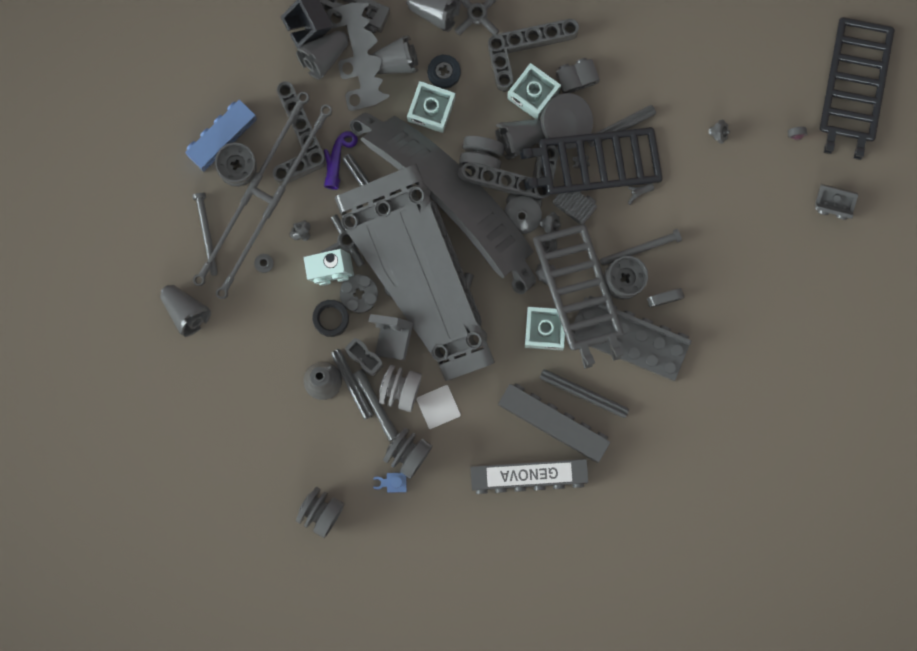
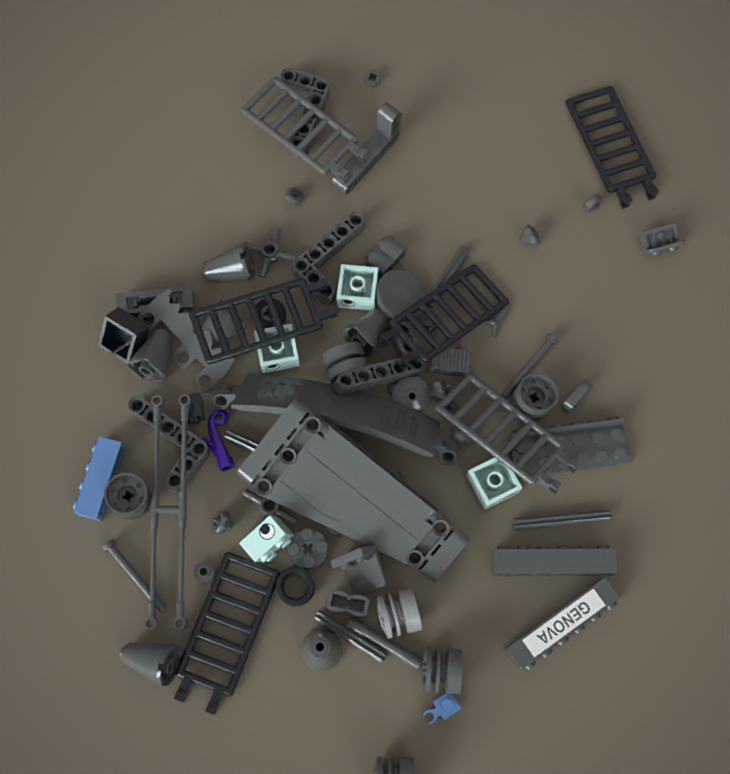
camera: 35 degrees left, 10 degrees down
(275, 333) = (205, 613): none -> black bar
(334, 121) = (196, 409): none -> black brick
(421, 97) = (307, 289): none -> black bar
(438, 407) = (441, 610): white sticker -> none

